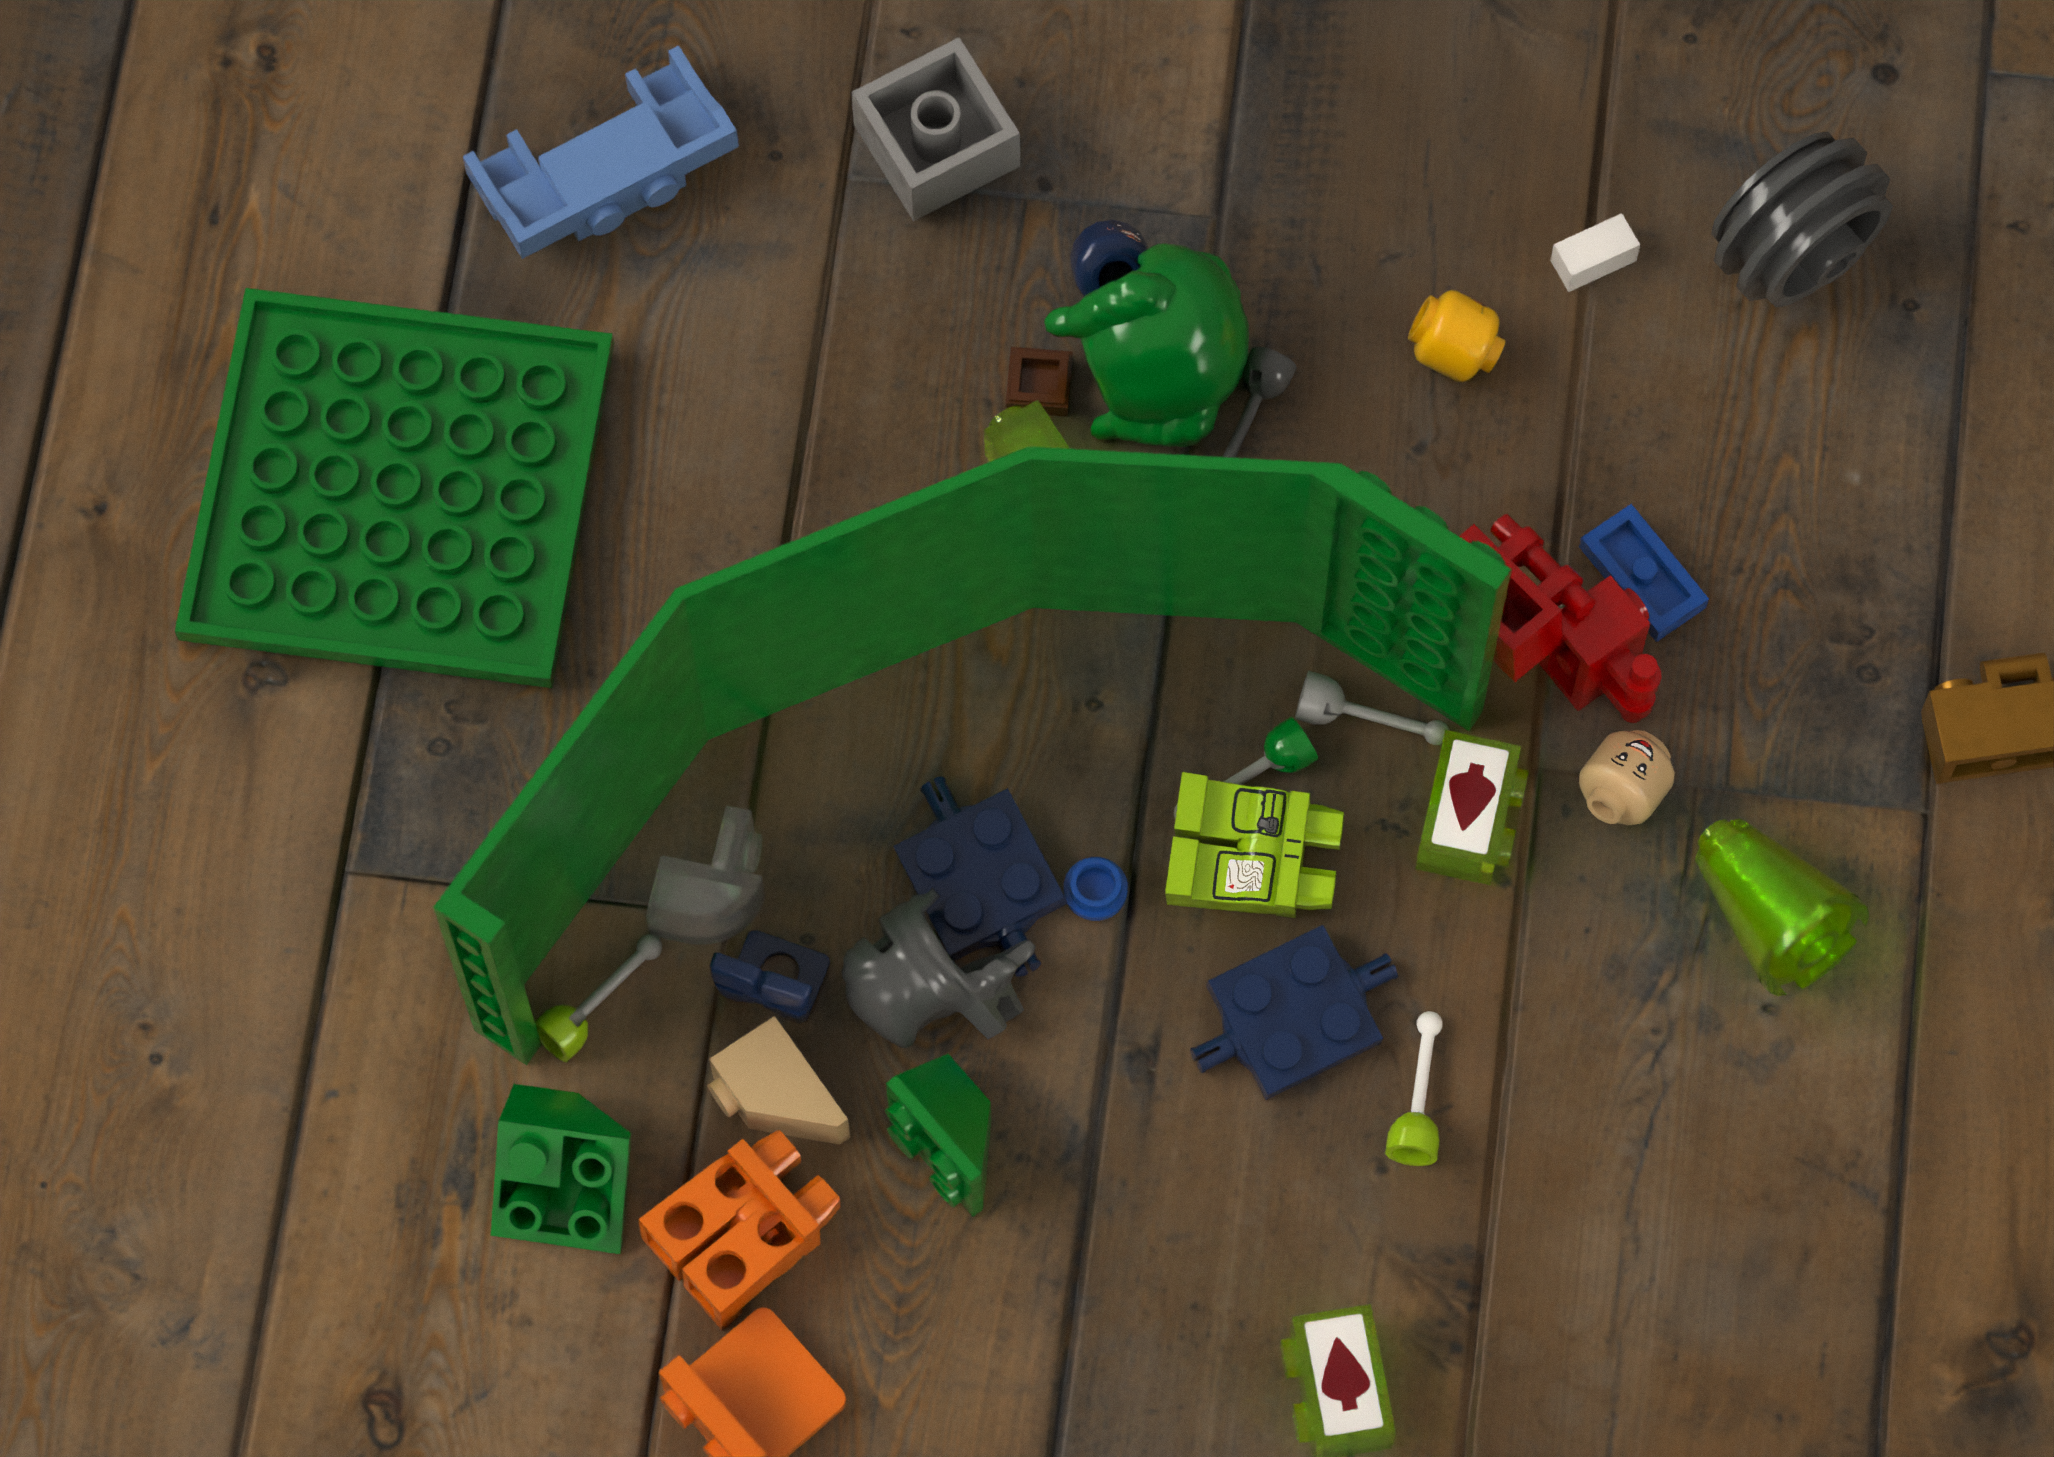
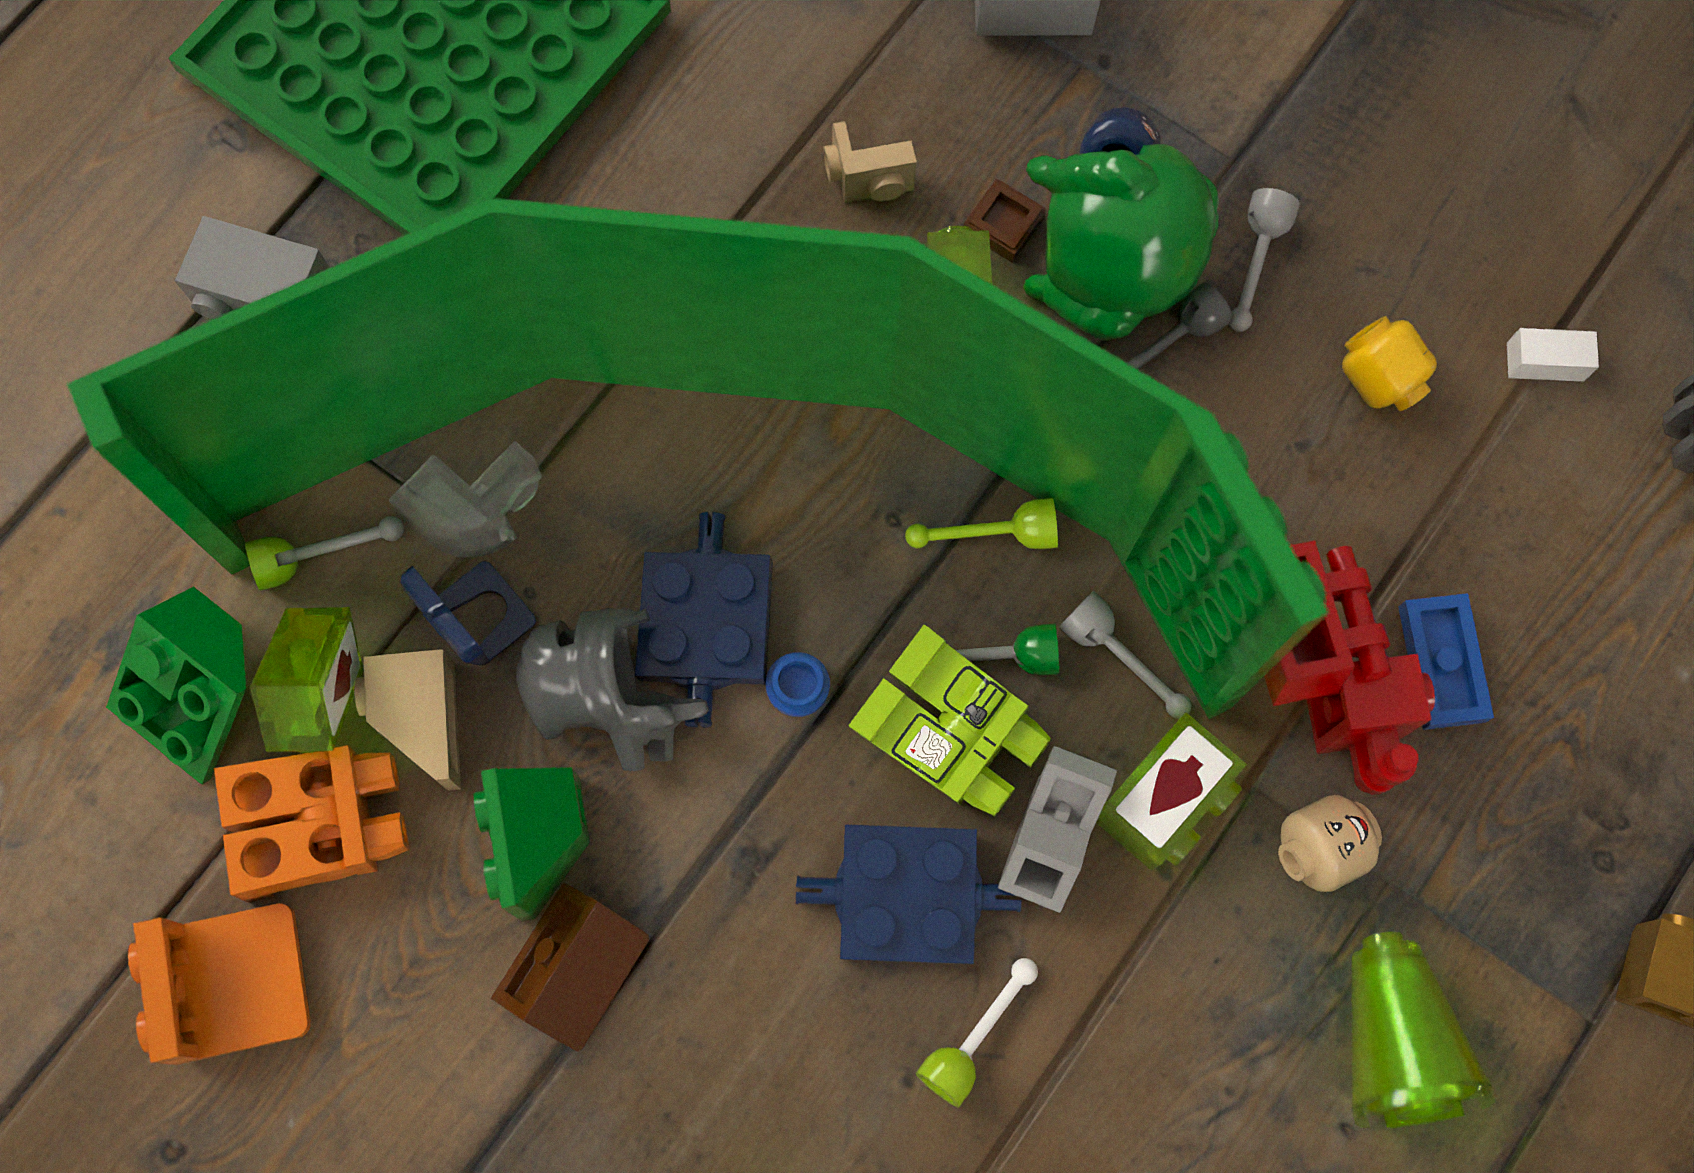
camera: 25 degrees right, 5 degrees up
(387, 790) = (240, 265): none -> light grey brick
(675, 1100) = (307, 679): none -> clear neon green brick
(900, 398) = (869, 172): none -> tan bracket
(1040, 1224) = (570, 967): none -> reddish brown panel
(1221, 640) = (1032, 525): none -> lime hinge
(1278, 255) = (1269, 217): none -> light grey hinge
(1390, 885) = (1056, 829): none -> light grey brick

